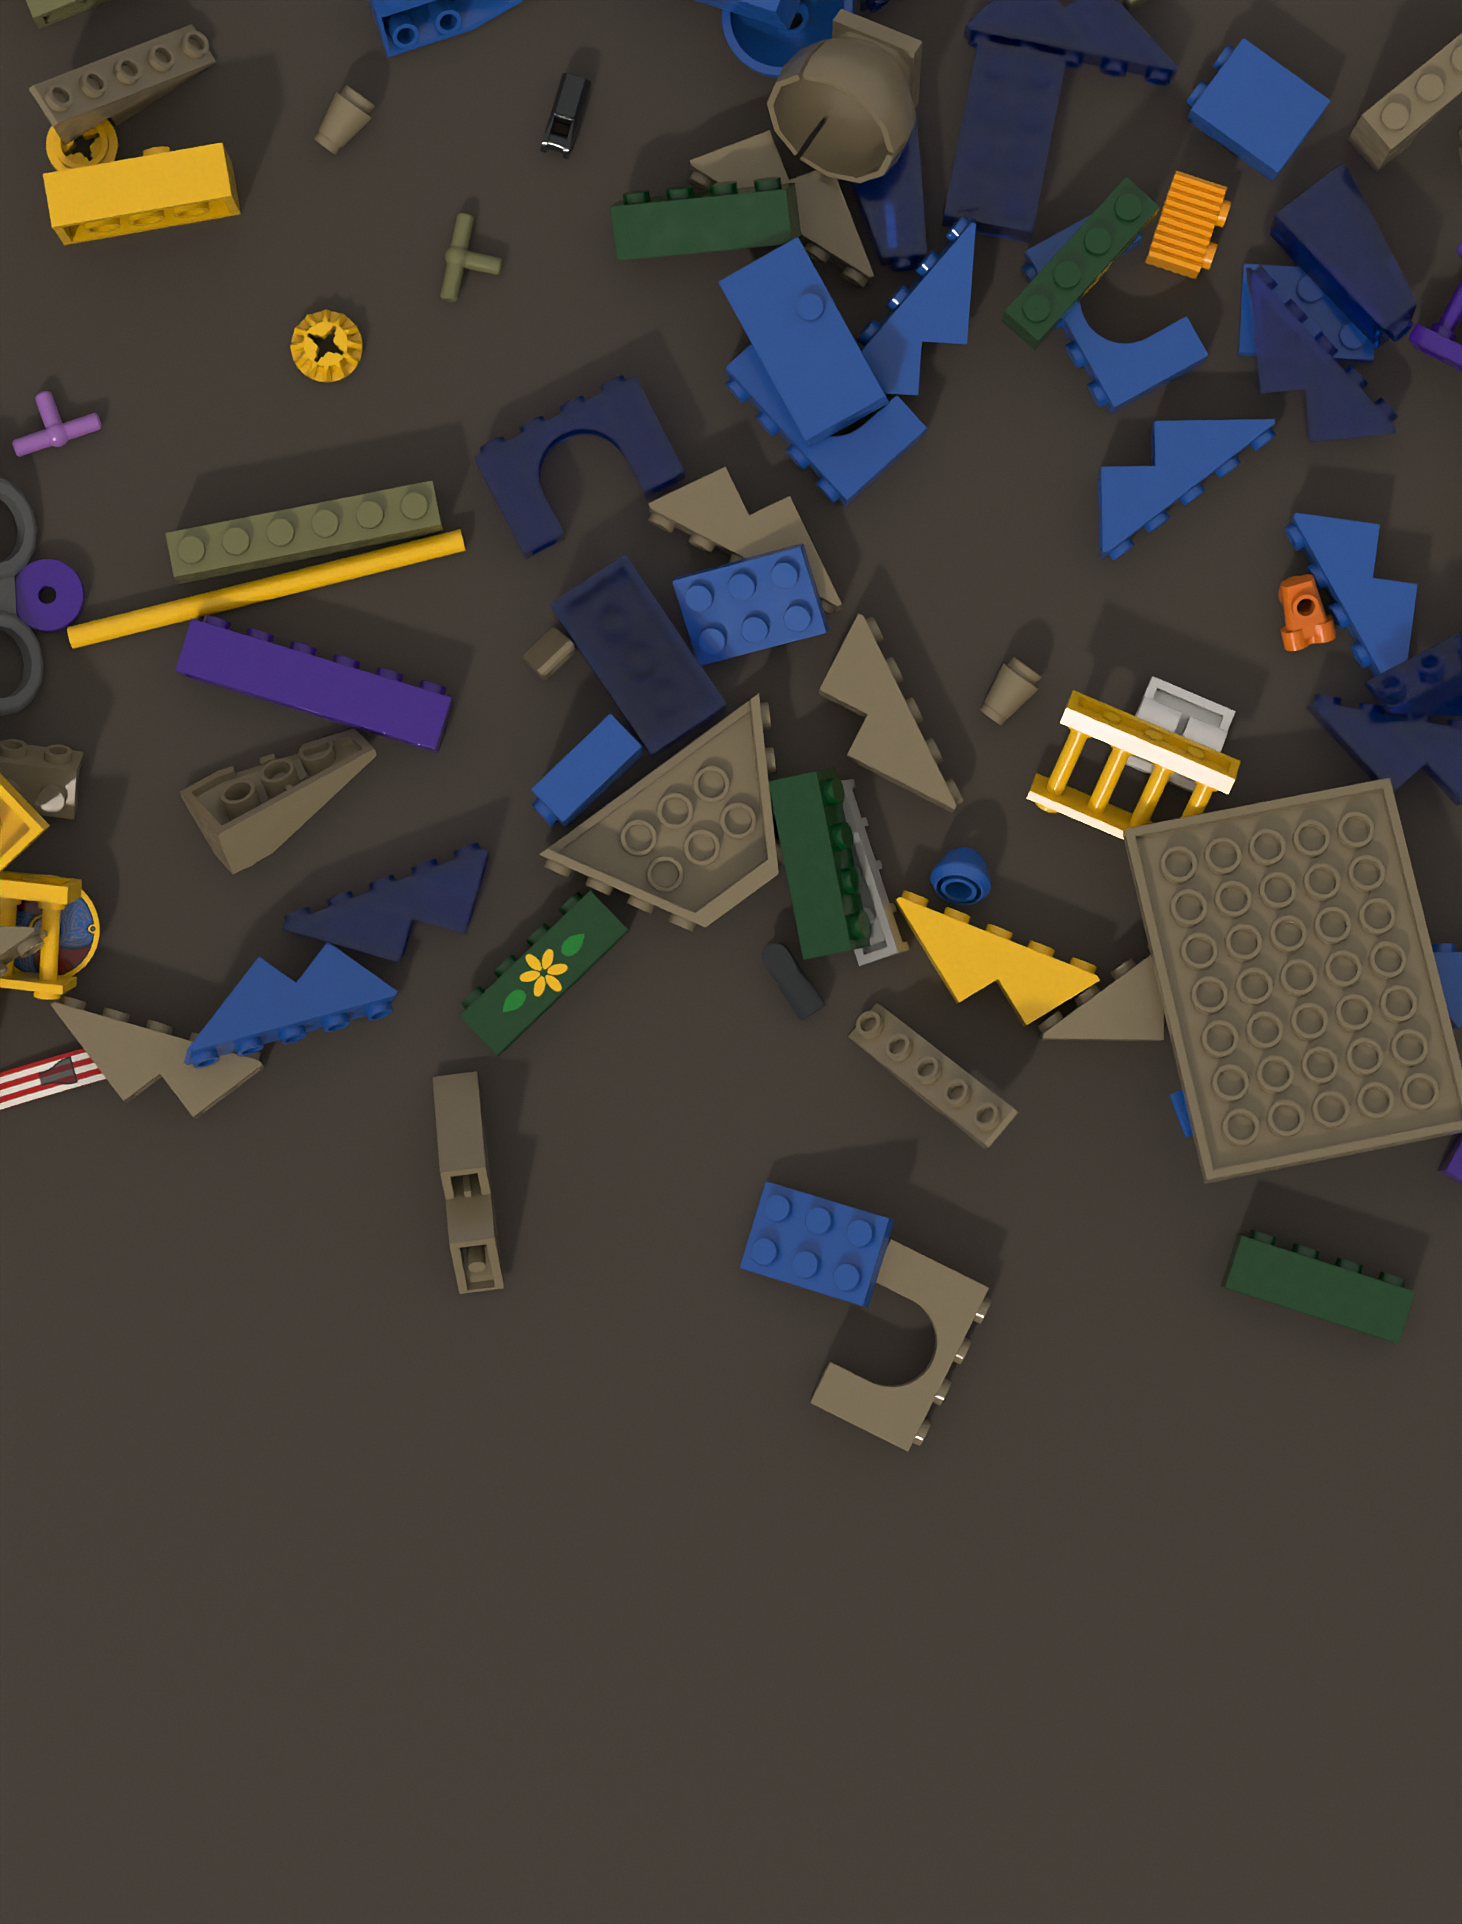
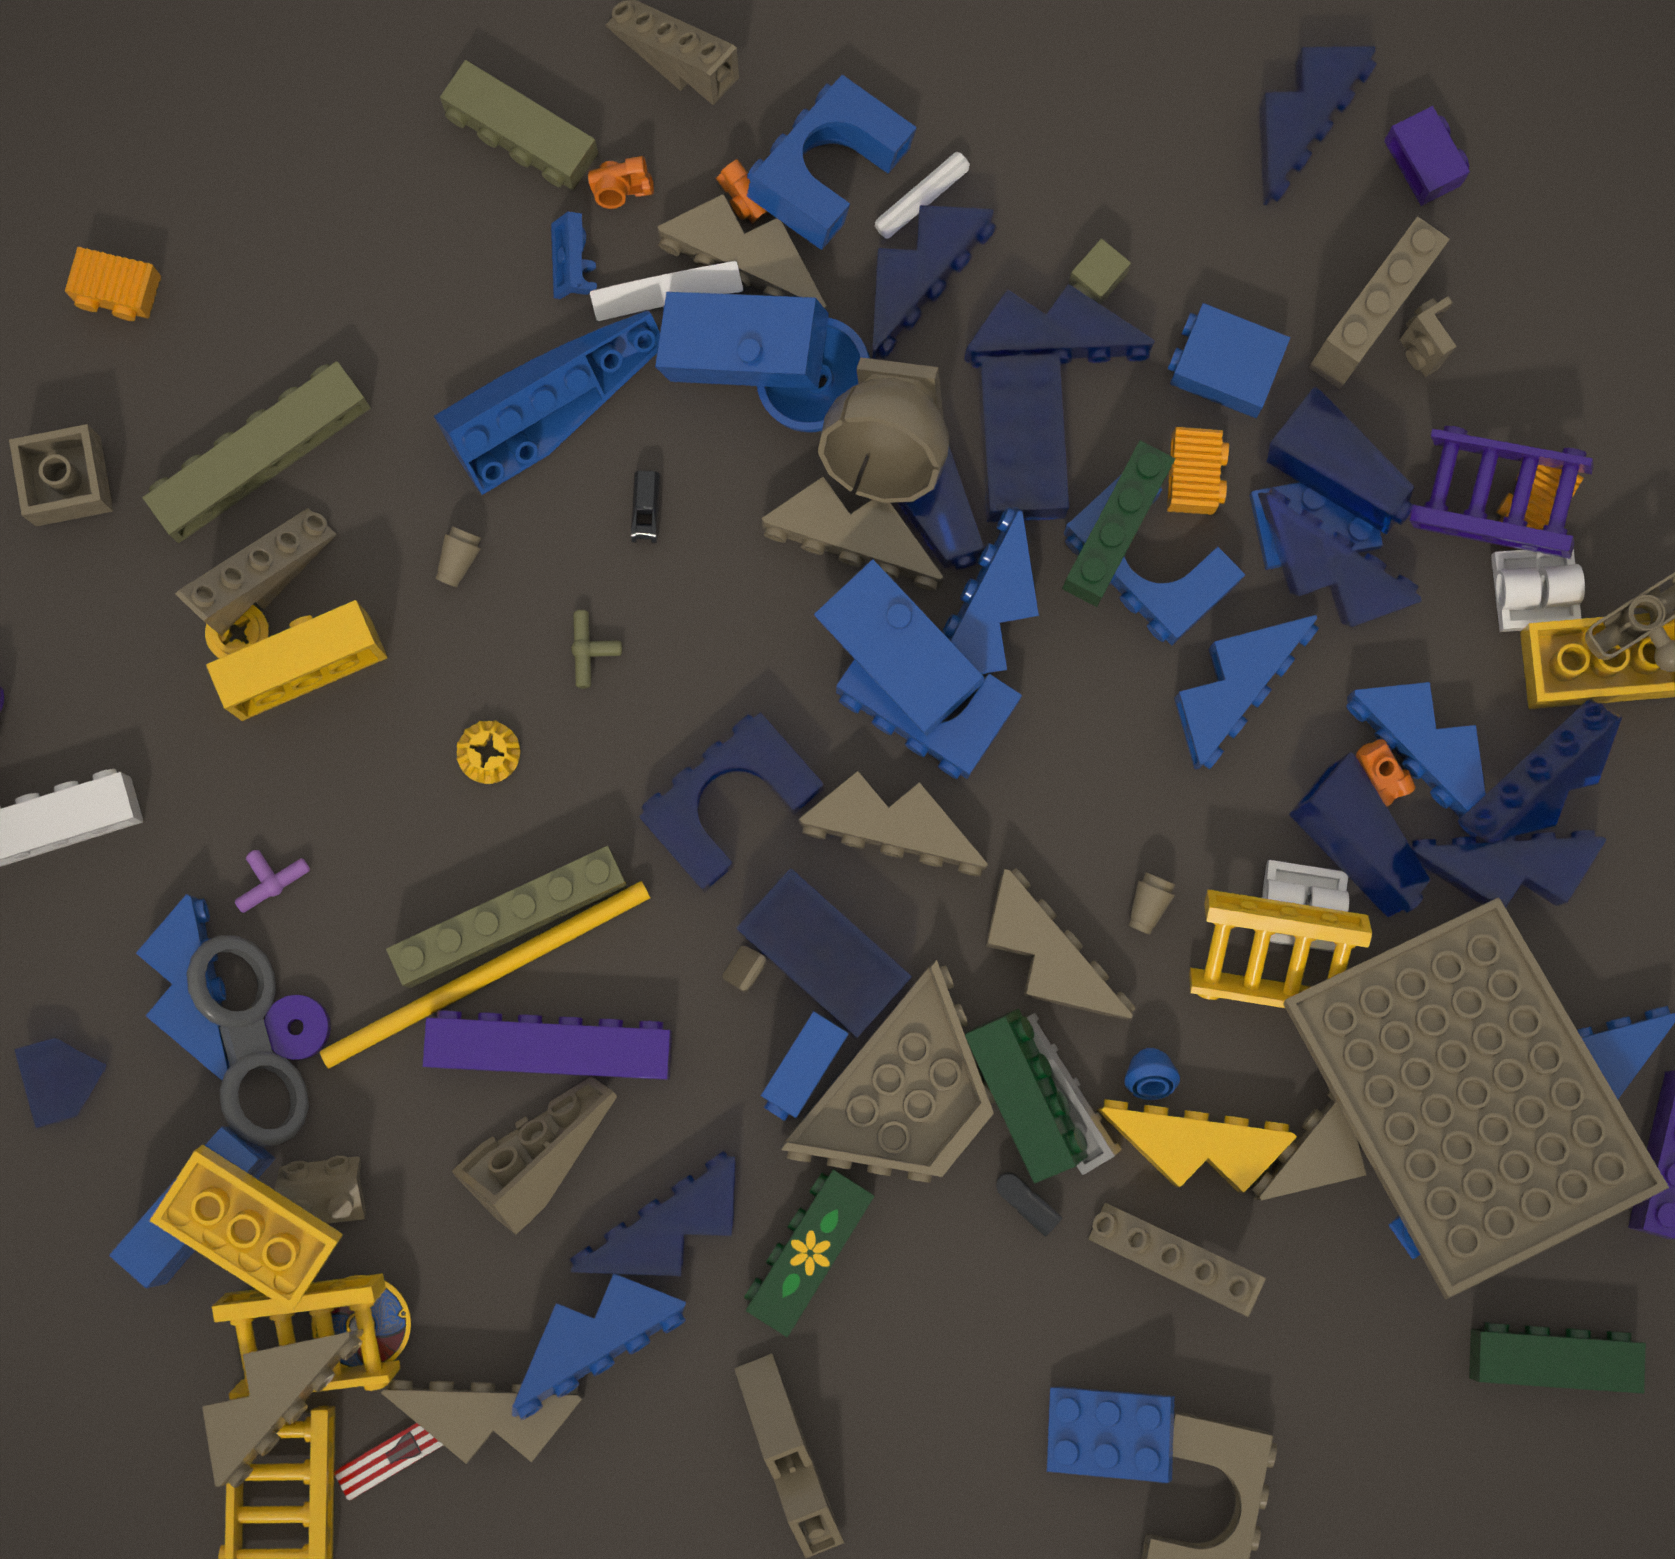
camera: 15 degrees left, 5 degrees down
(705, 220) = (787, 566): dark green brick -> none
(750, 604) = (909, 884): blue plate -> none
(1259, 675) = (1361, 836): none -> clear blue slope

